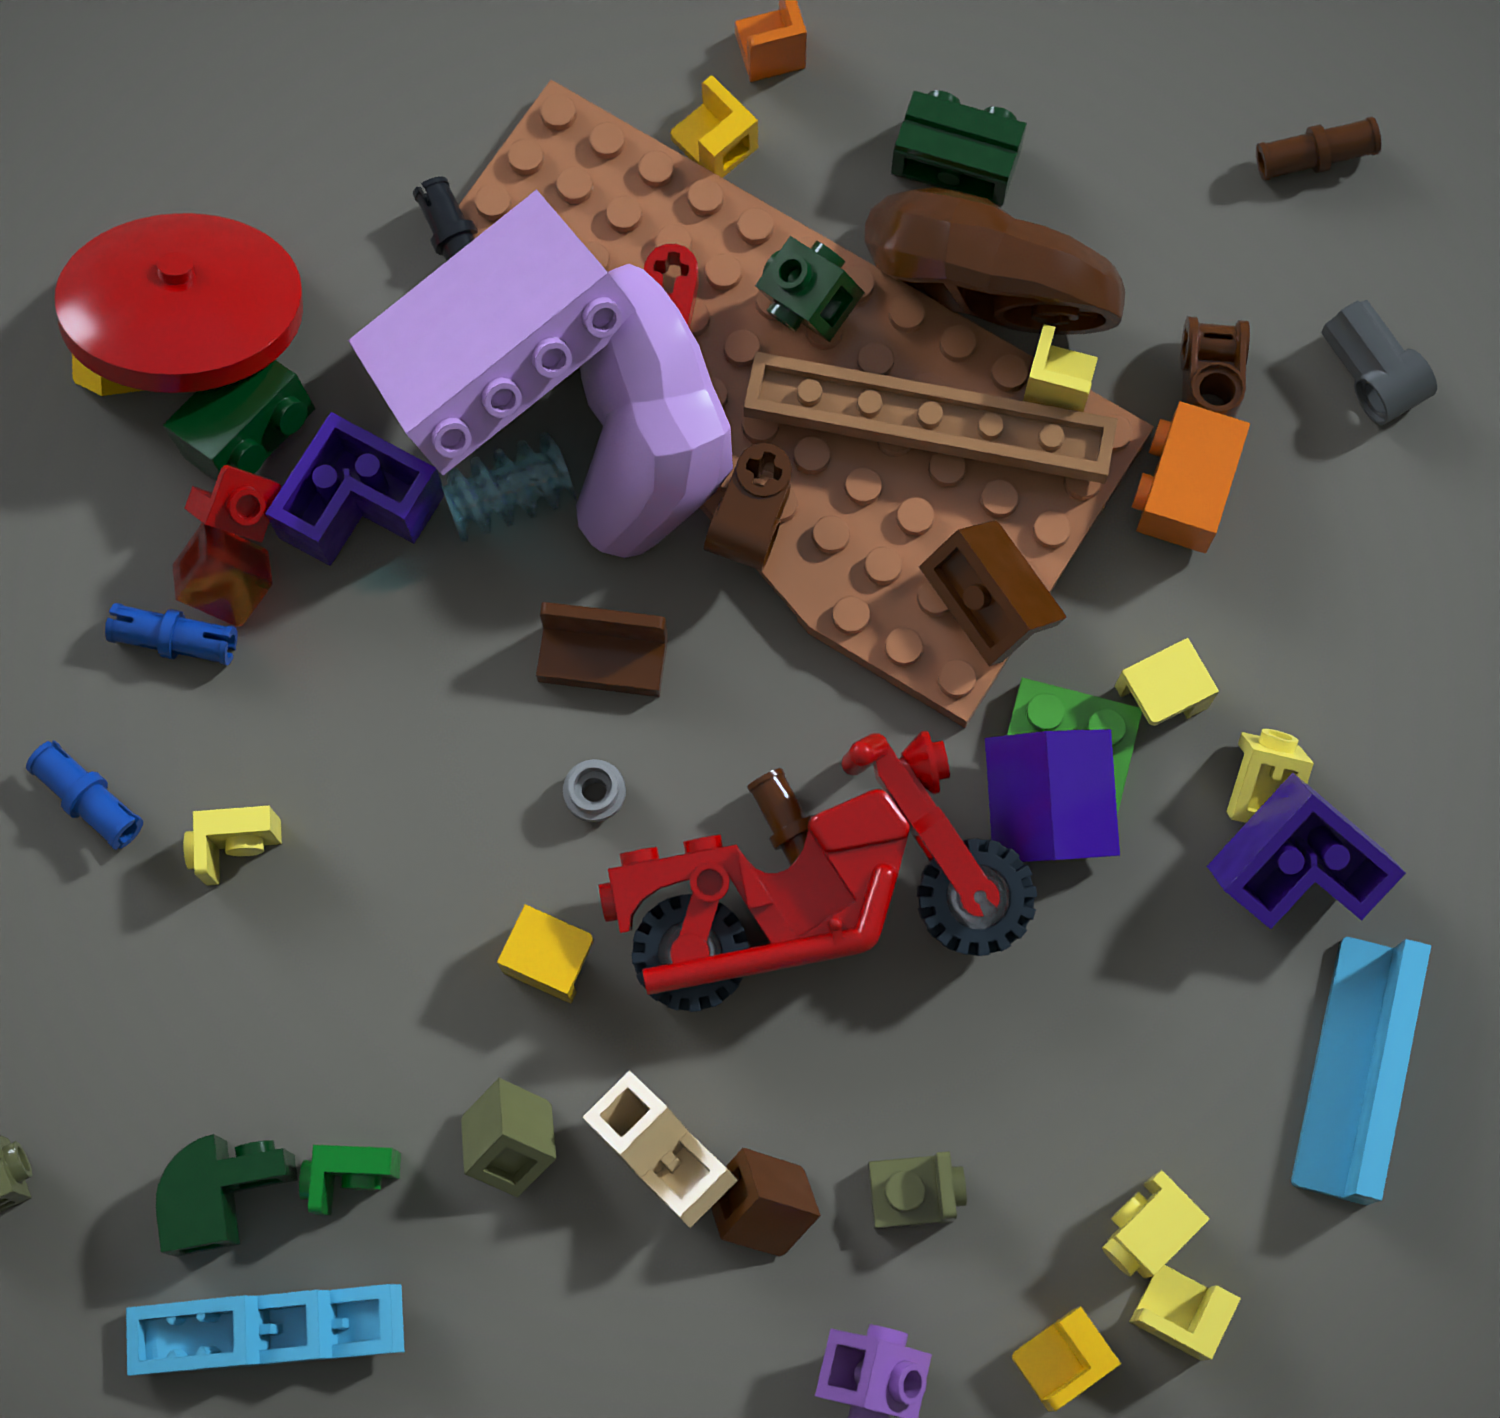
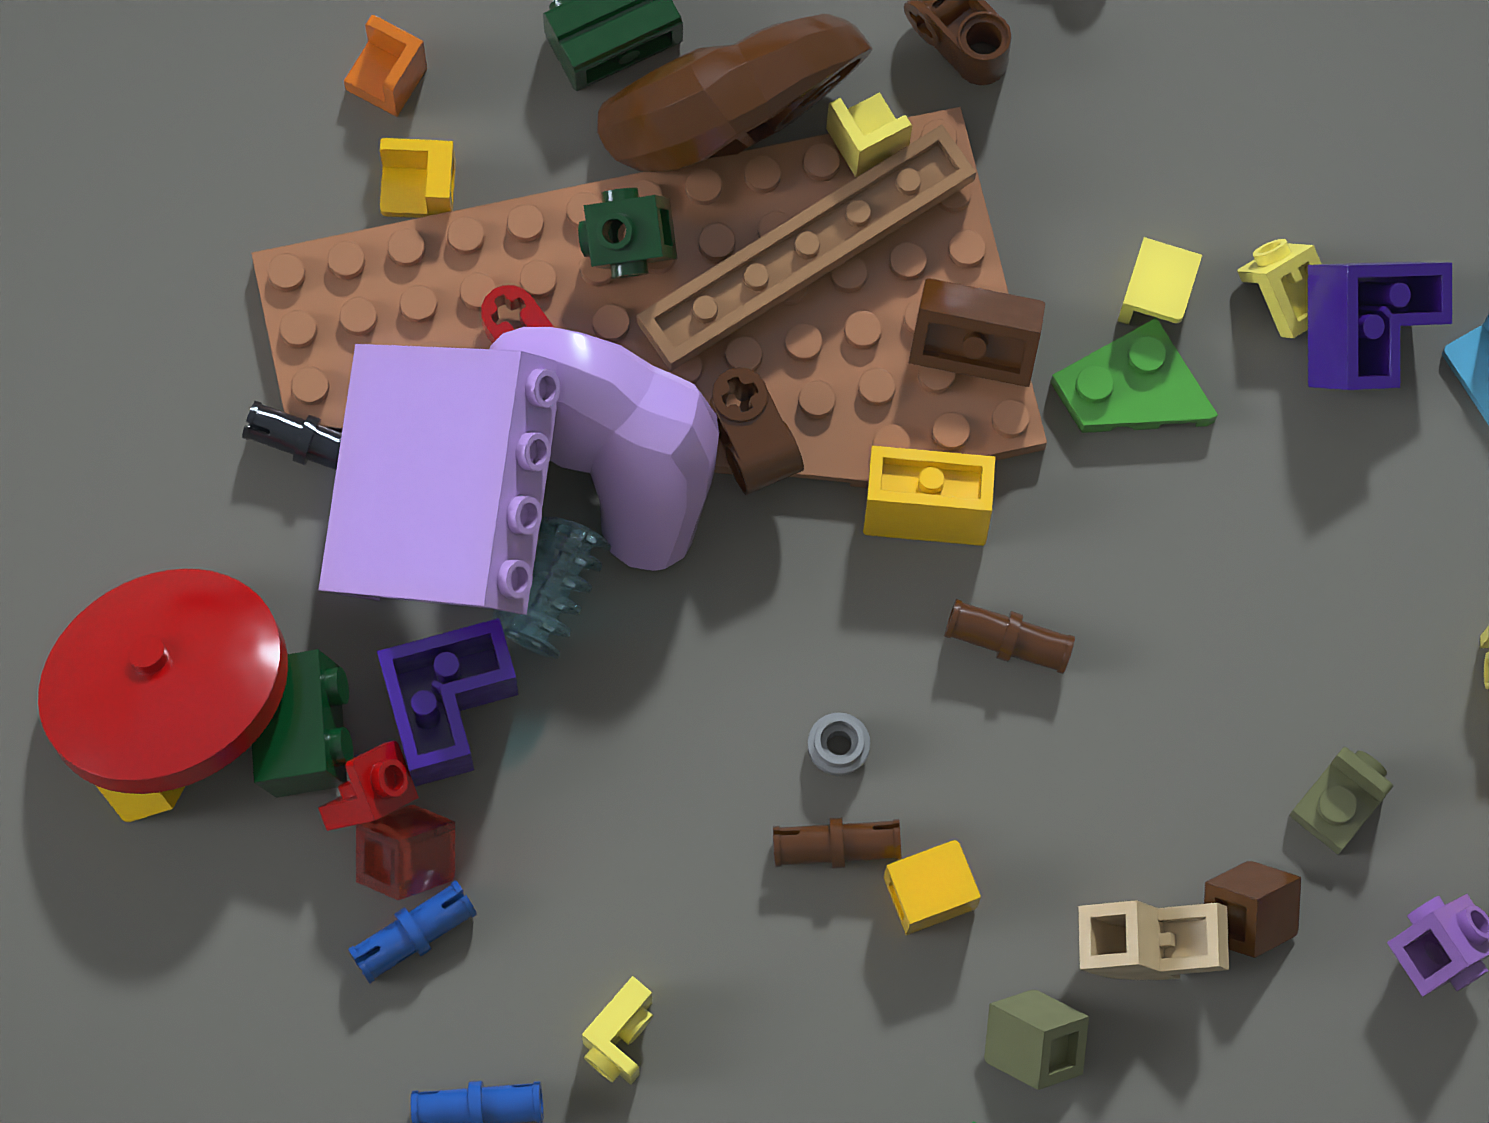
camera: 50 degrees left, 0 degrees up
(518, 858) = (837, 843): none -> reddish brown pin
(602, 649) = (740, 639): reddish brown panel -> none
(831, 898) = (1092, 654): red piece -> none
(837, 674) = (929, 495): none -> yellow panel
(1053, 794) = (1160, 440): dark purple slope -> none
(1191, 477) = (1026, 119): orange brick -> none

